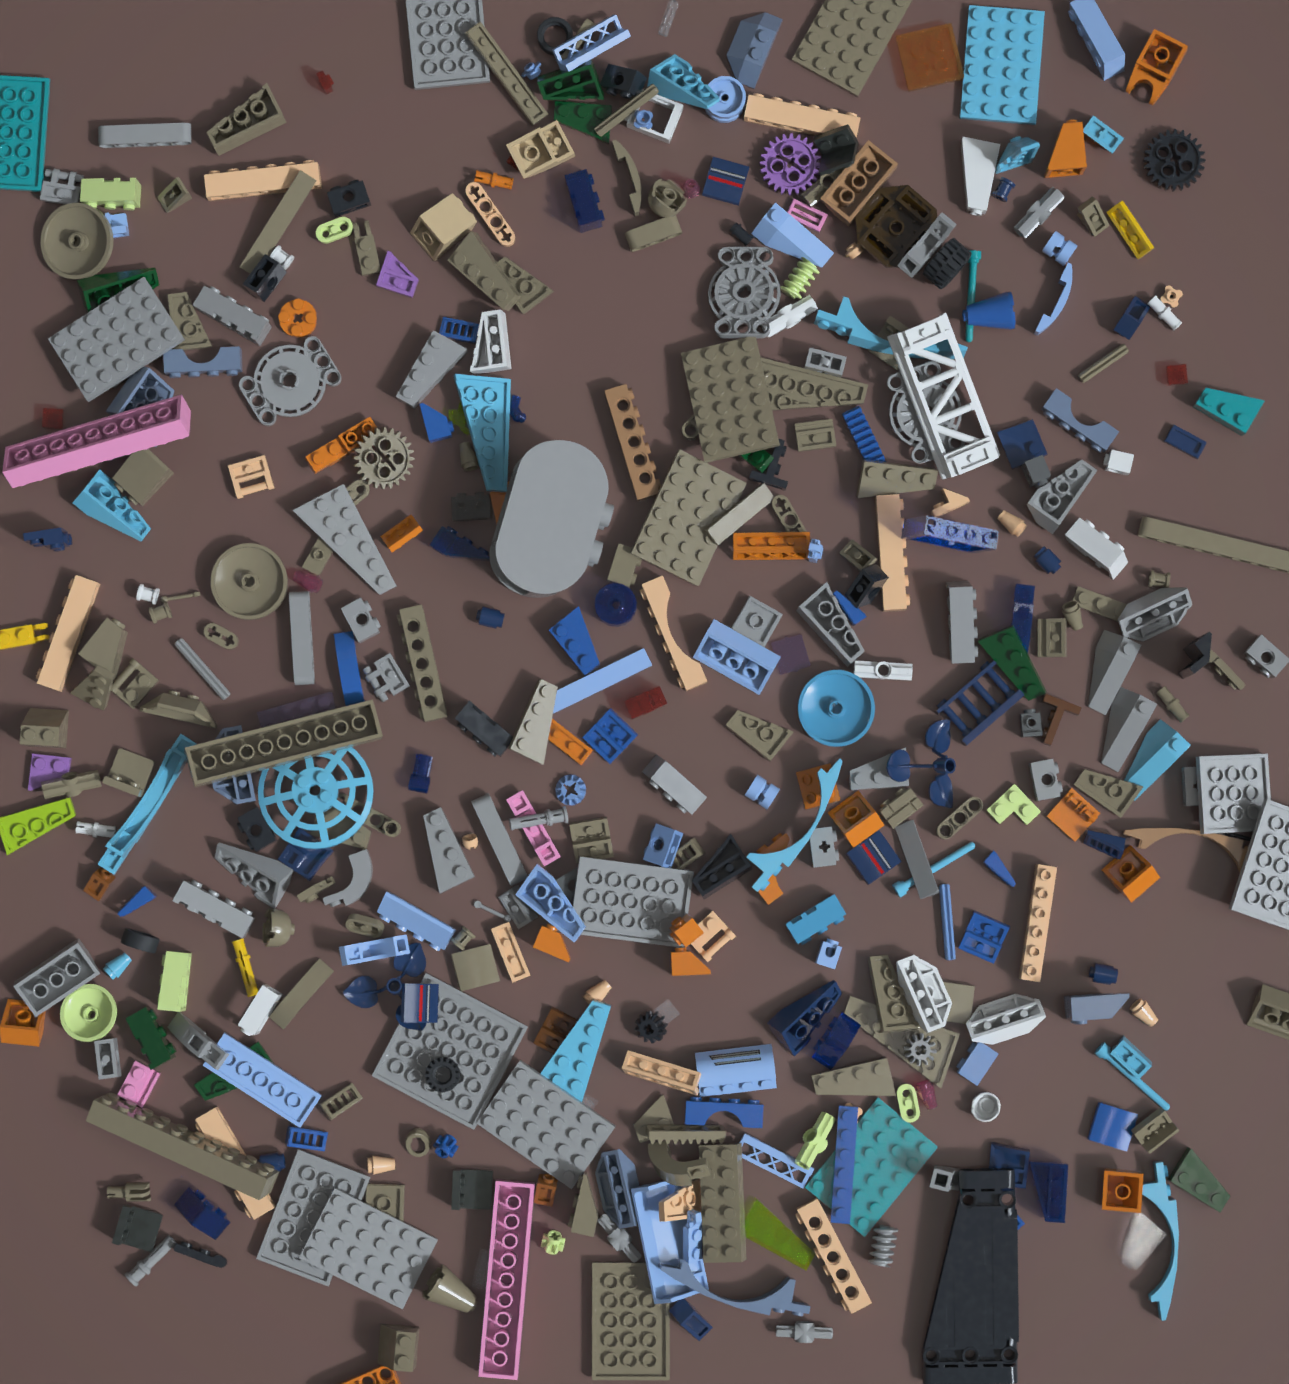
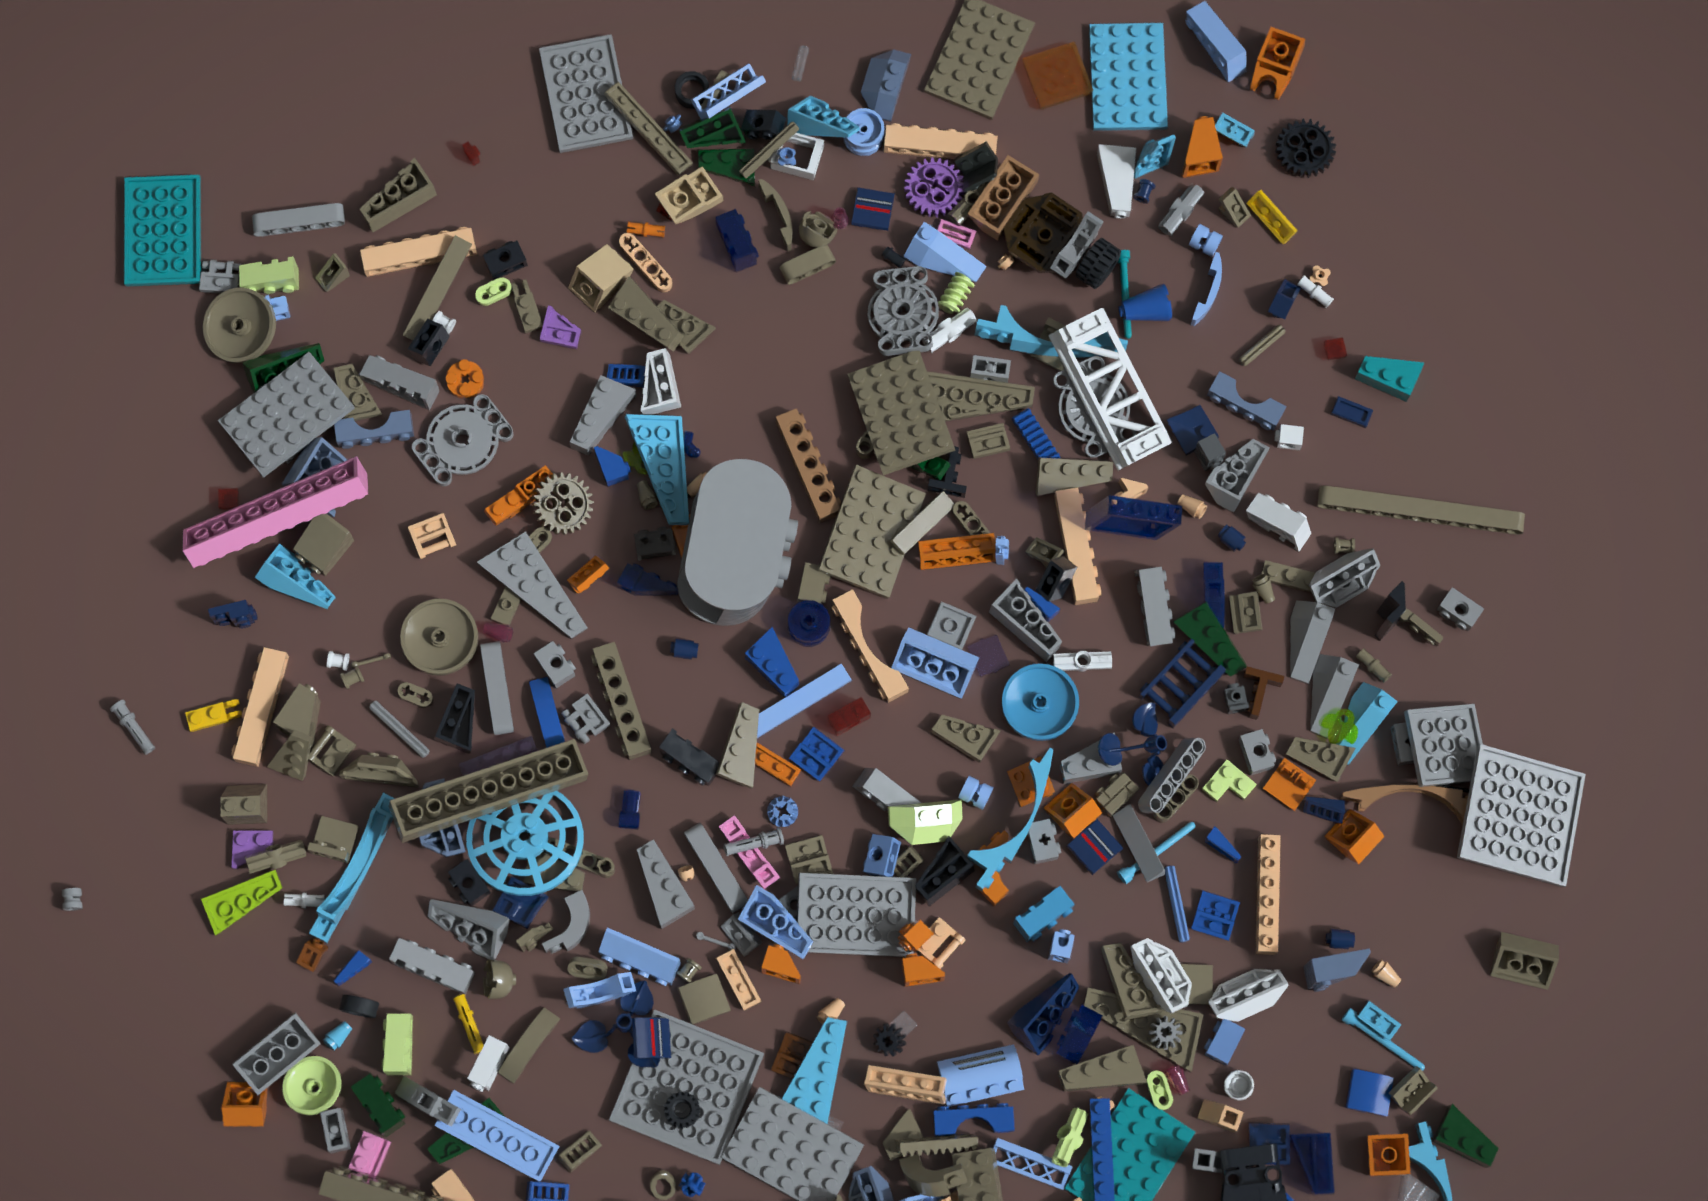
camera: 15 degrees left, 10 degrees down
(260, 666) = (457, 721): none -> black wedge
(520, 450) = (694, 486): none -> light nougat cone
(710, 816) = (926, 821): none -> yellowish green wedge
(964, 787) = (1171, 775): none -> light grey beam
(964, 1134) = (1220, 1115): none -> light nougat slope
(1129, 766) = (1338, 729): none -> clear neon green plate

